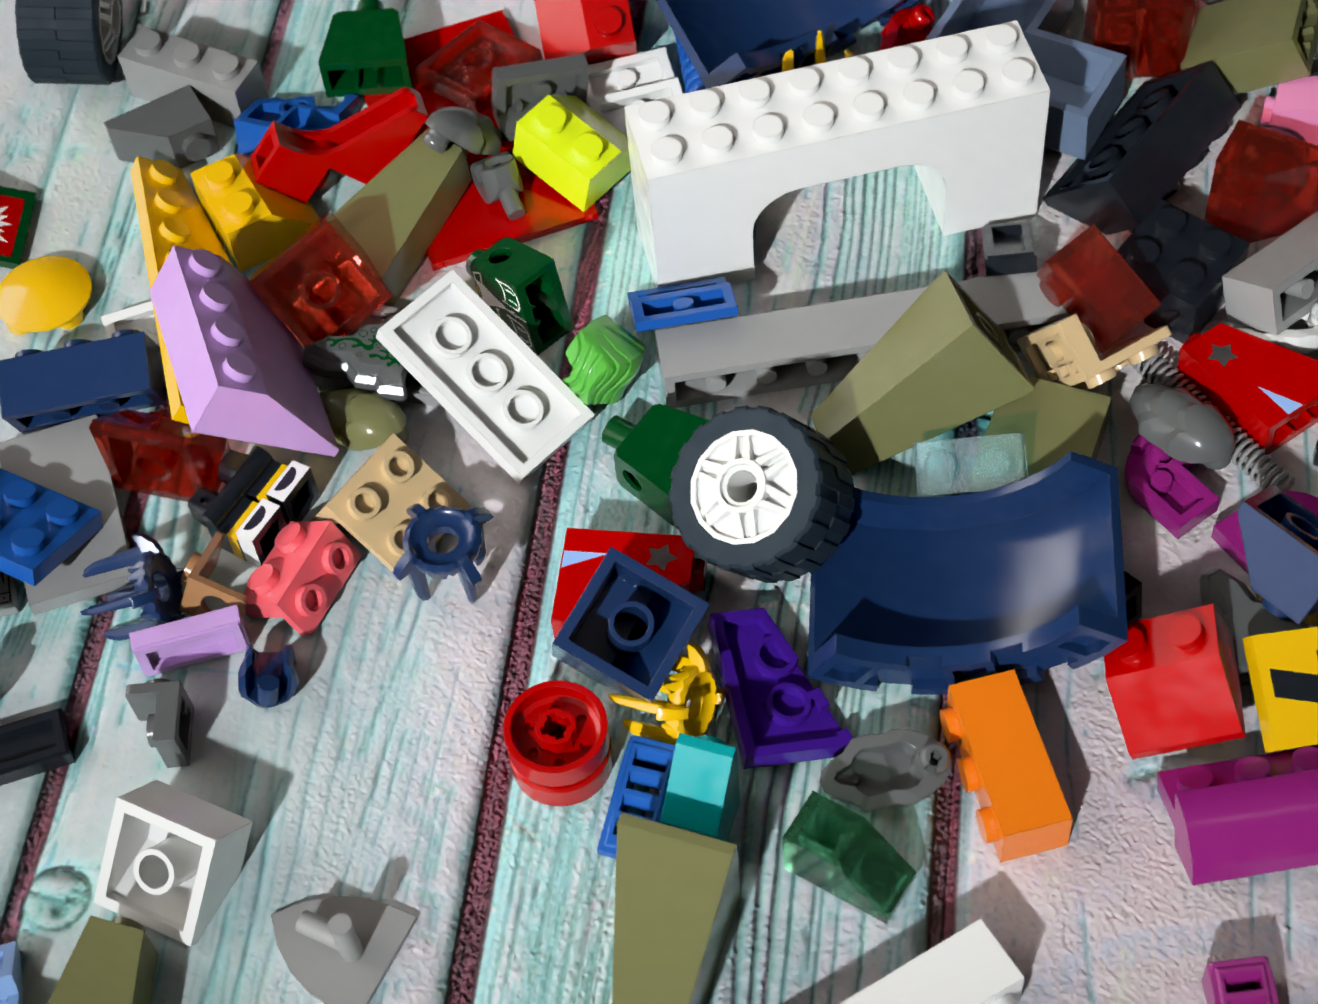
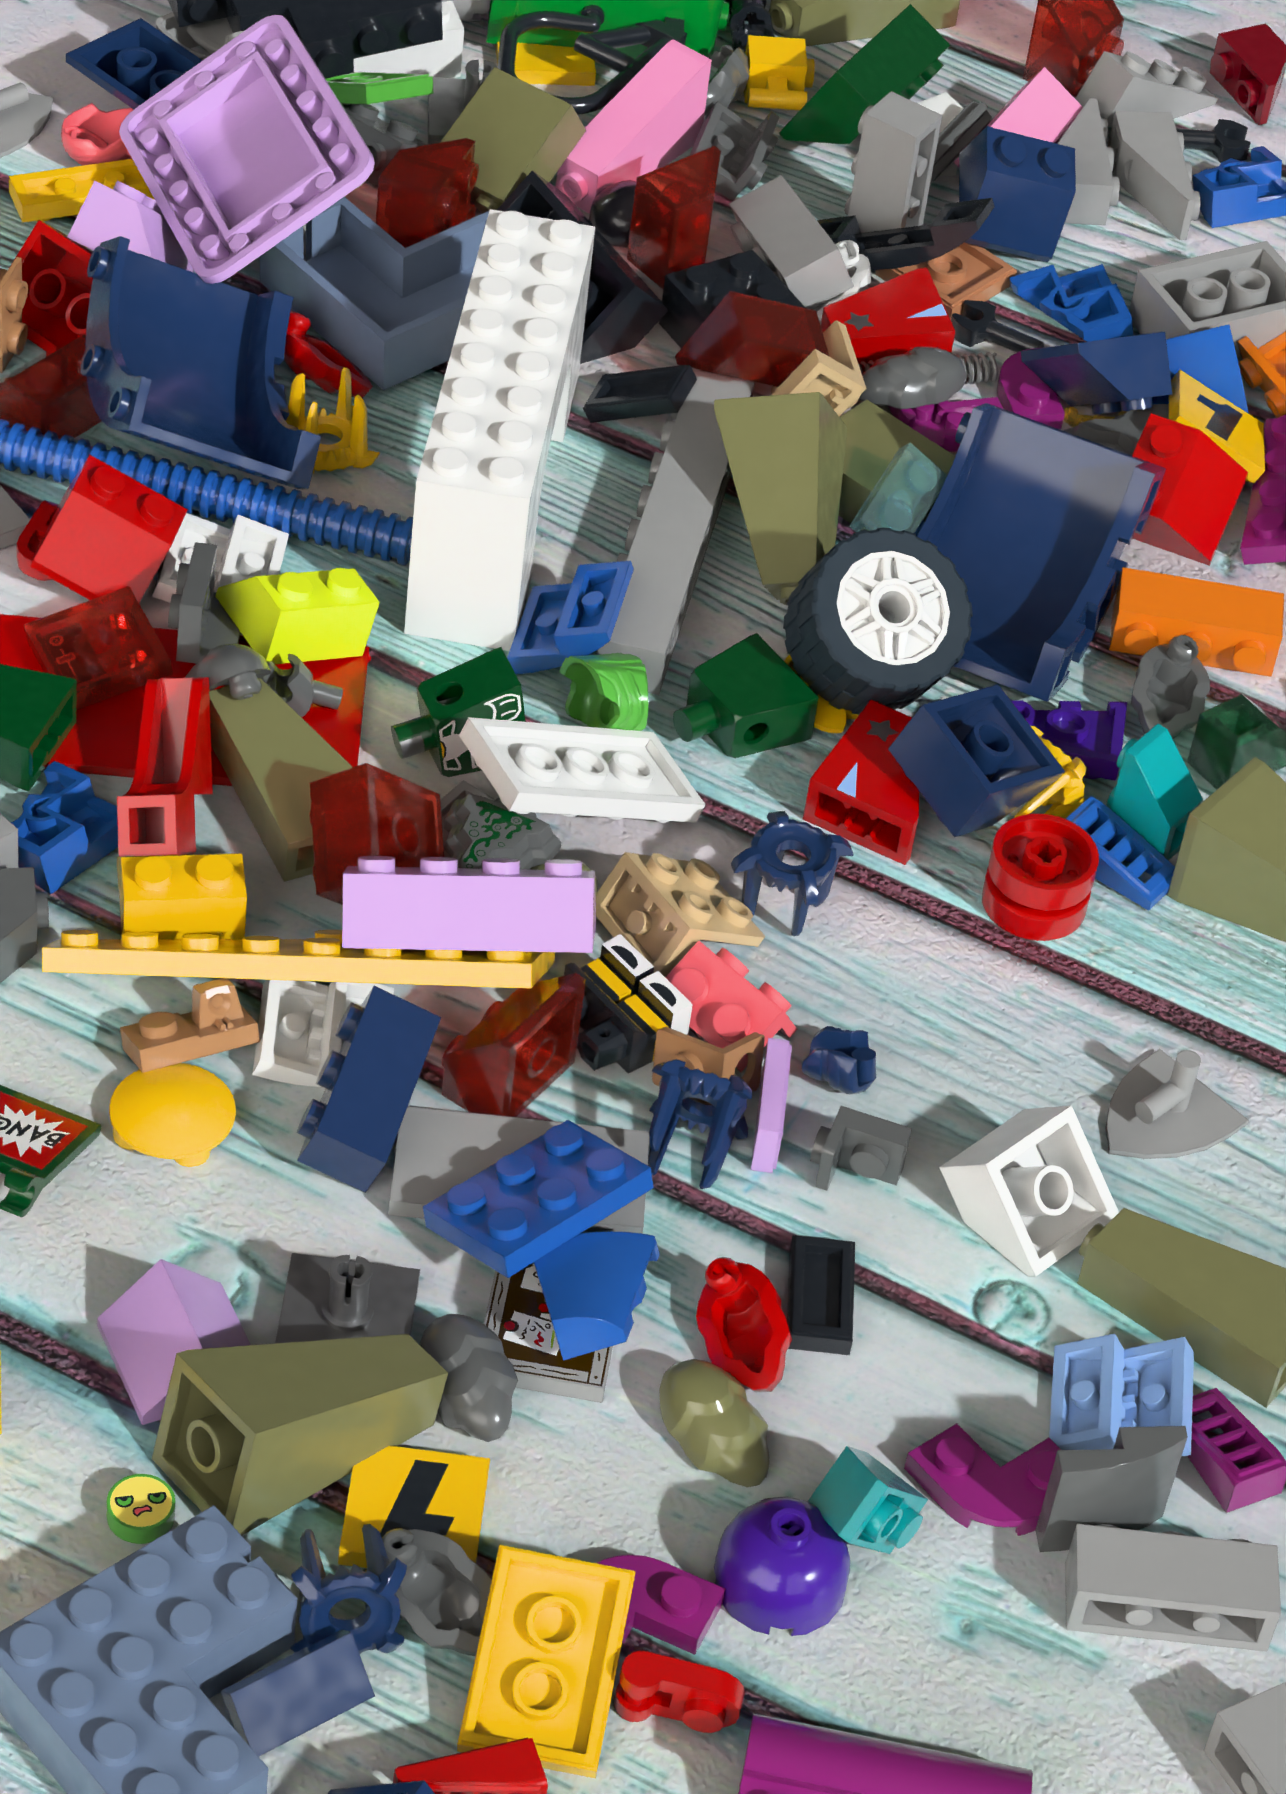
camera: 80 degrees left, 10 degrees down
(113, 269) = (212, 1027): none -> medium nougat hinge

